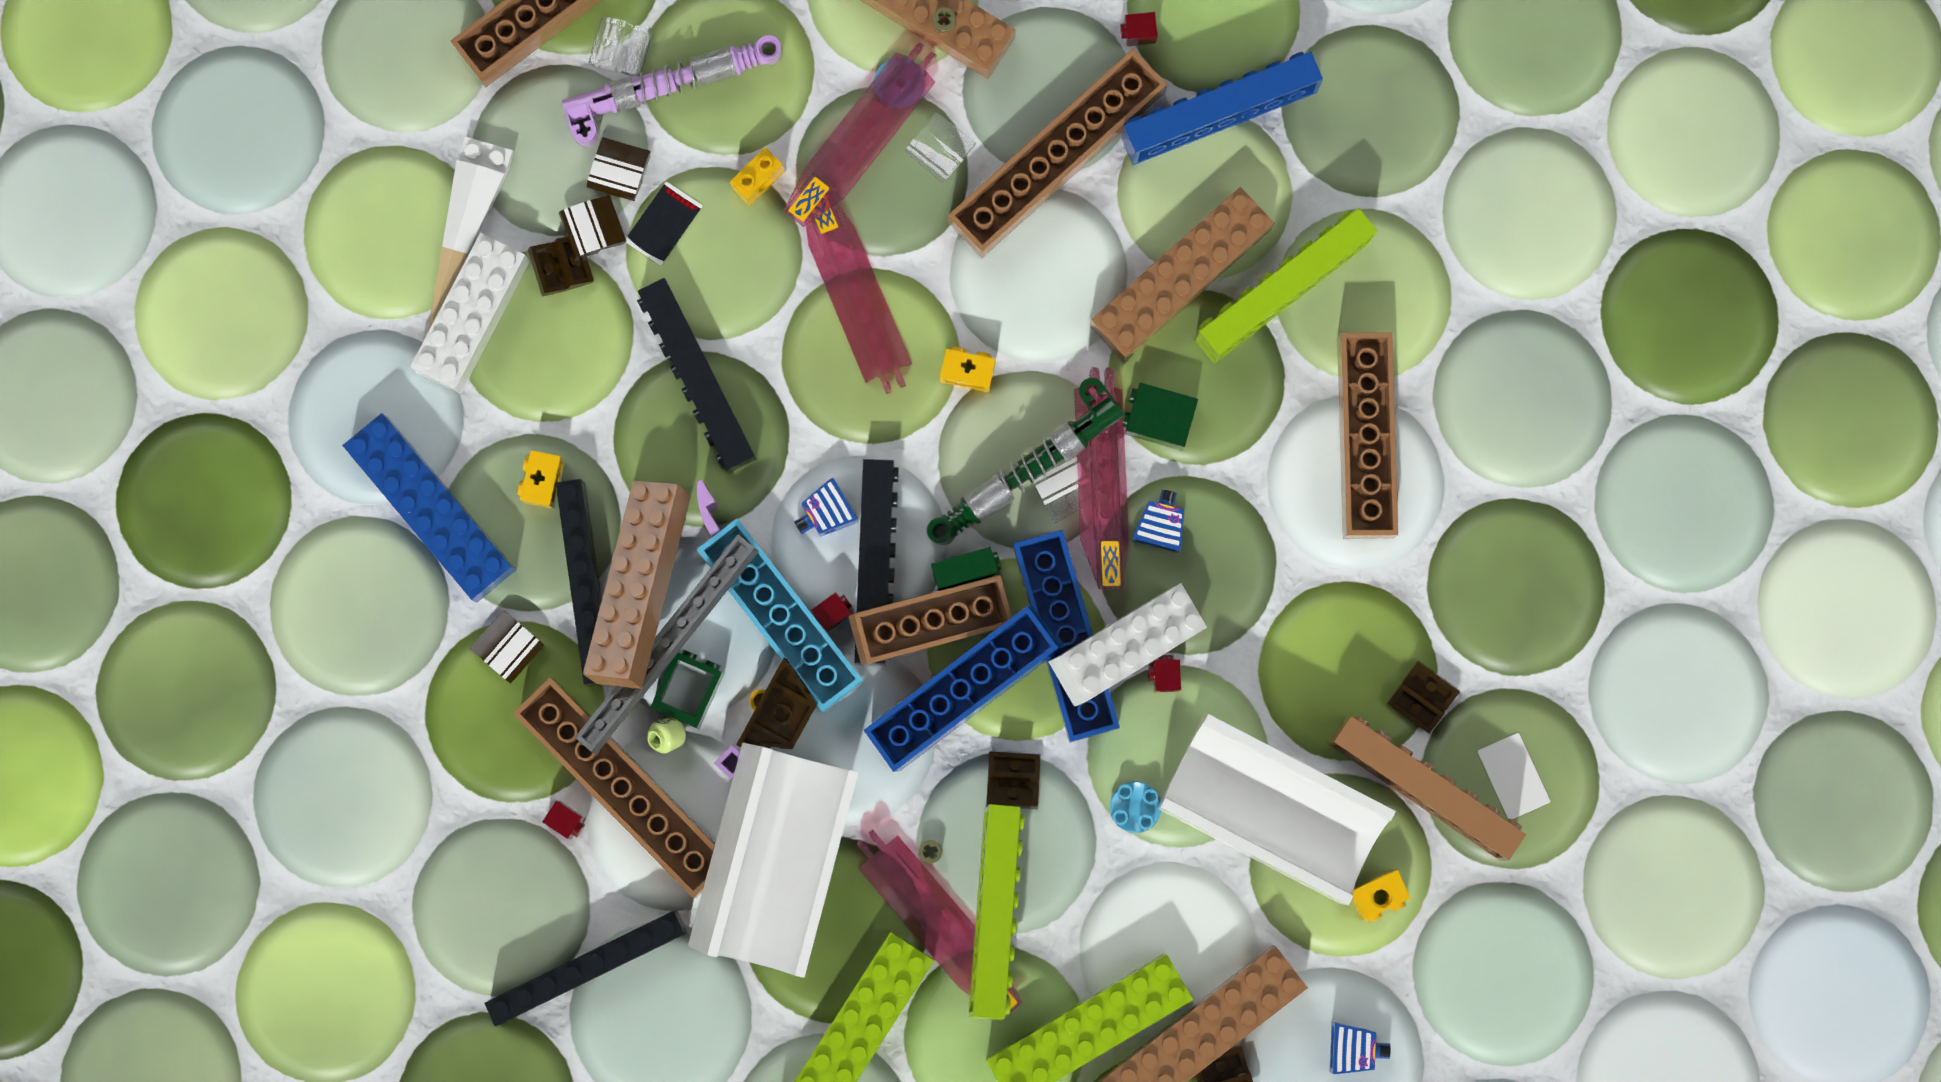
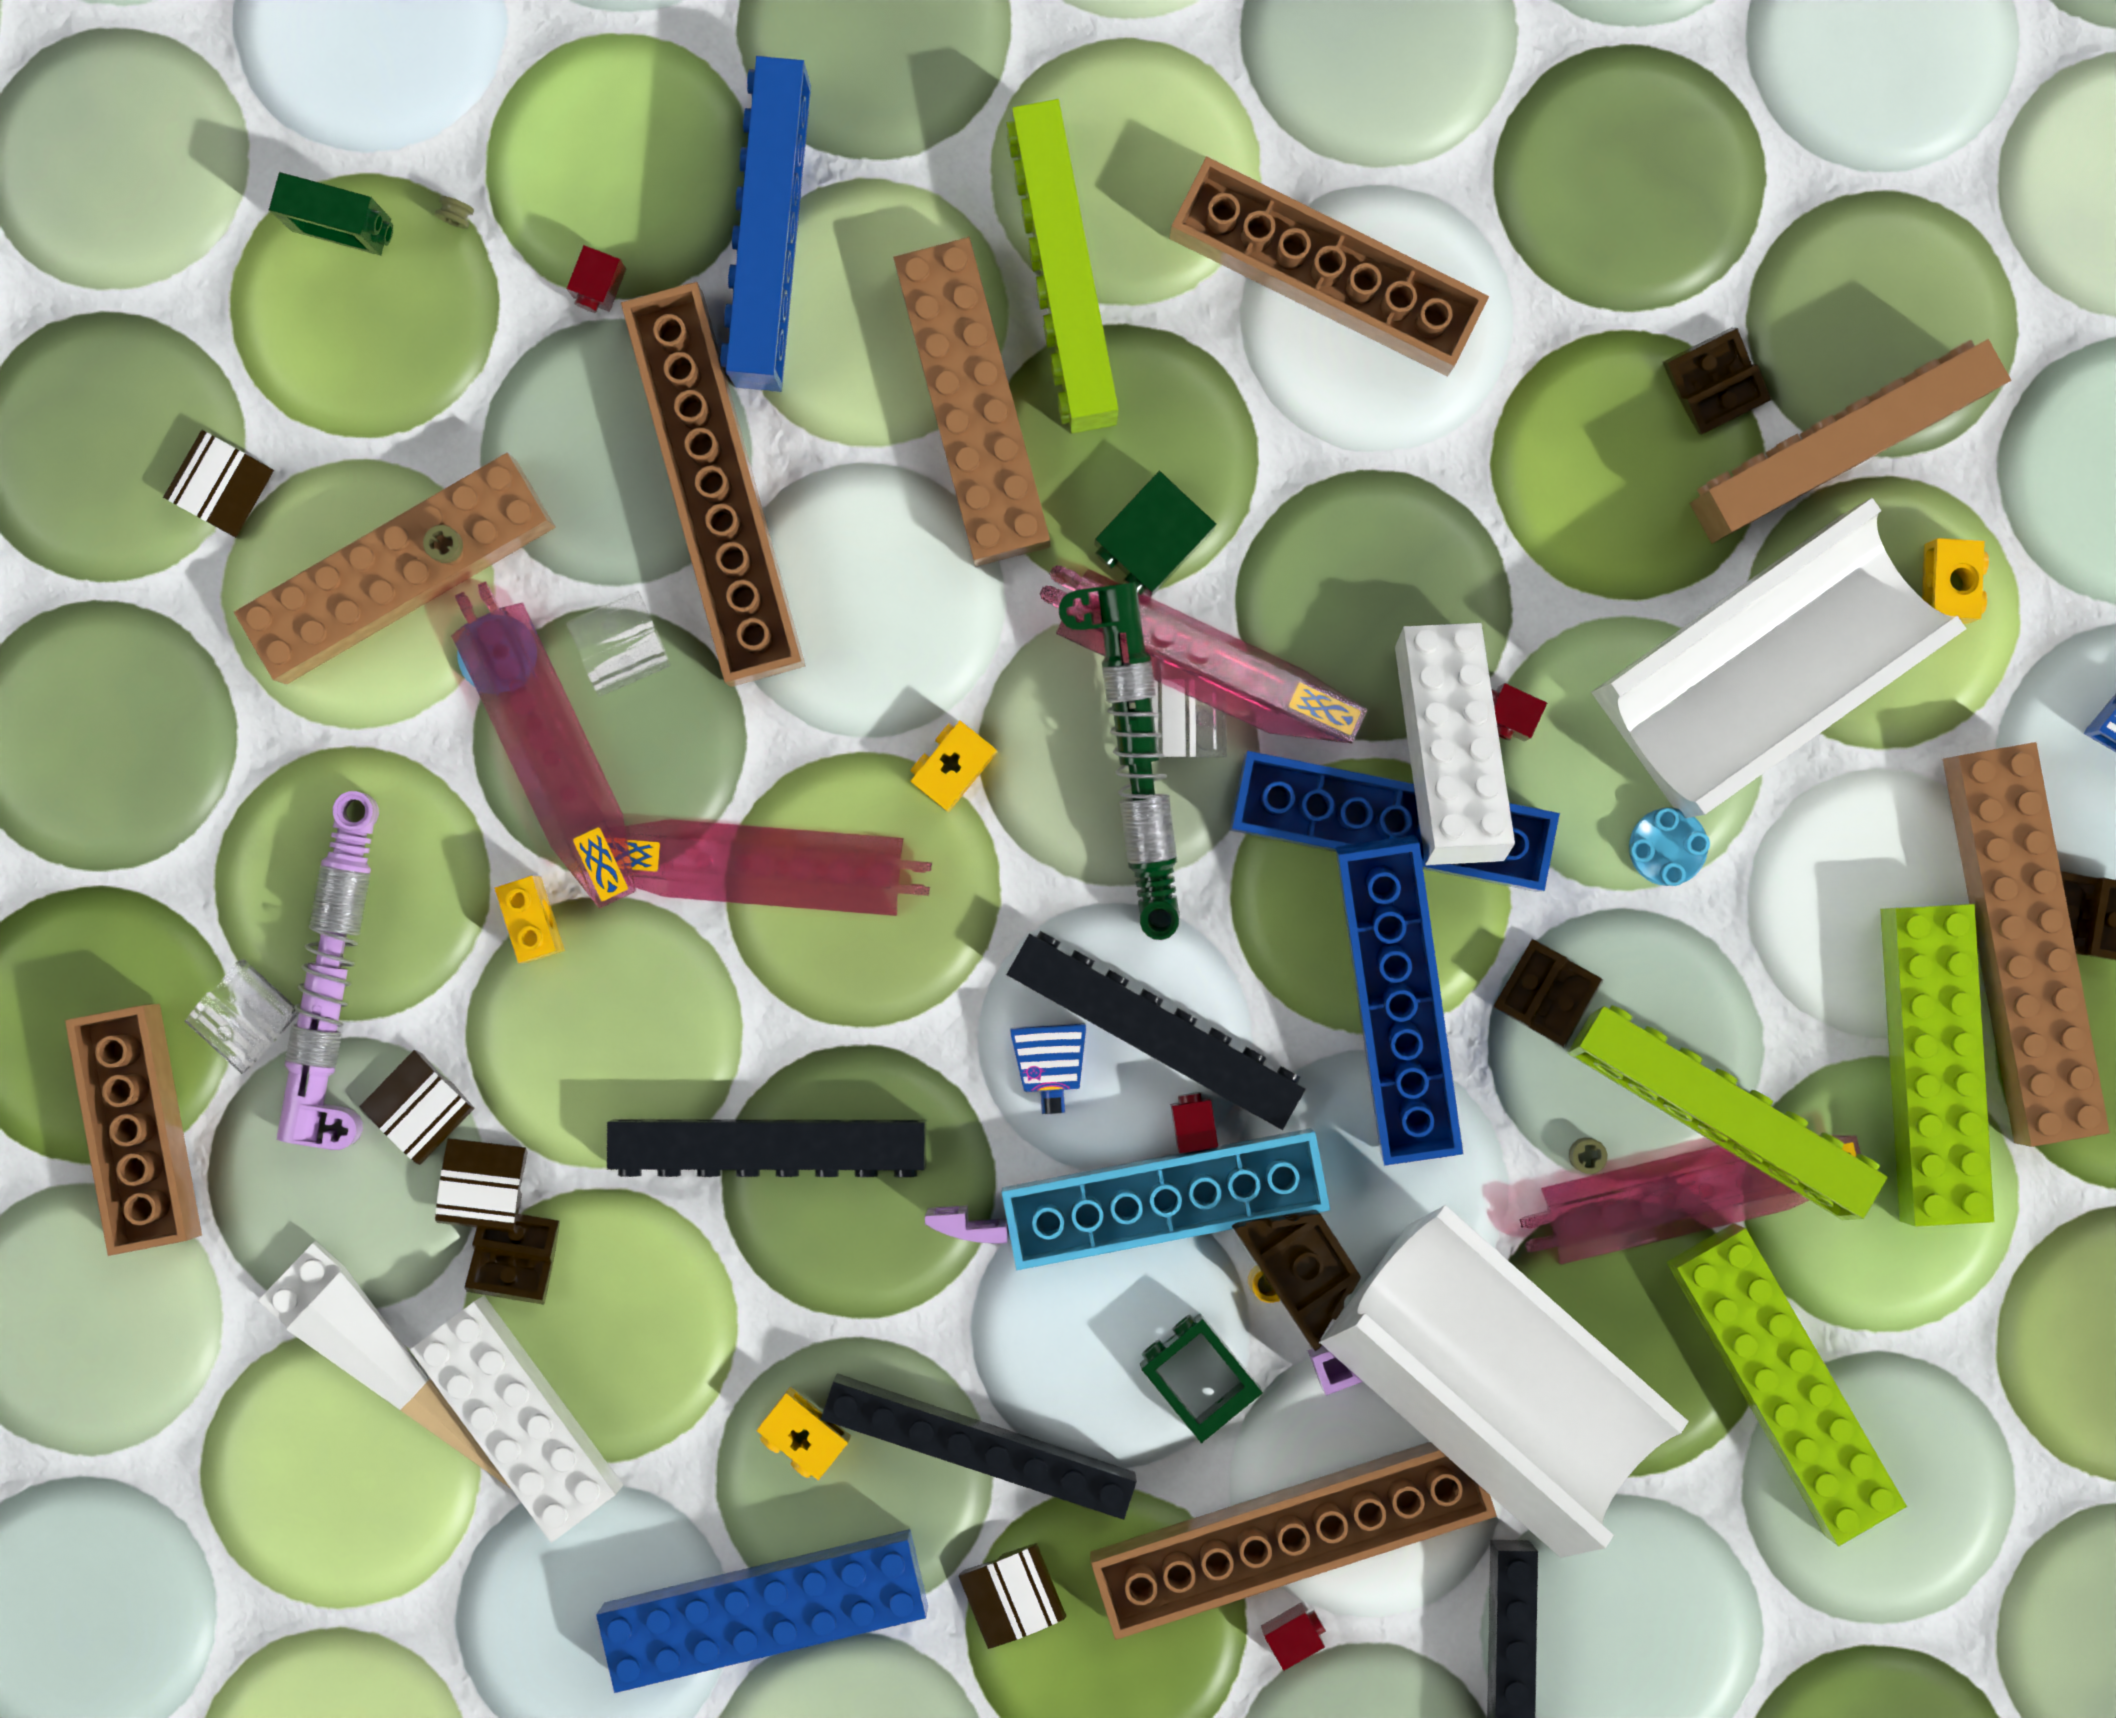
camera: 65 degrees left, 5 degrees up
(637, 584) = (1025, 1378): medium nougat brick -> none
(663, 223) = (526, 1082): black sticker -> none
(666, 735) = (1249, 1438): yellowish green head -> none
(669, 641) = (1131, 1379): dark grey plate -> none
(930, 620) = (1281, 996): medium nougat brick -> none
(966, 568) = (1233, 911): dark green brick -> none
(1161, 524) = (1302, 611): blue torso -> none
(1513, 776) = (1882, 317): white sticker -> none

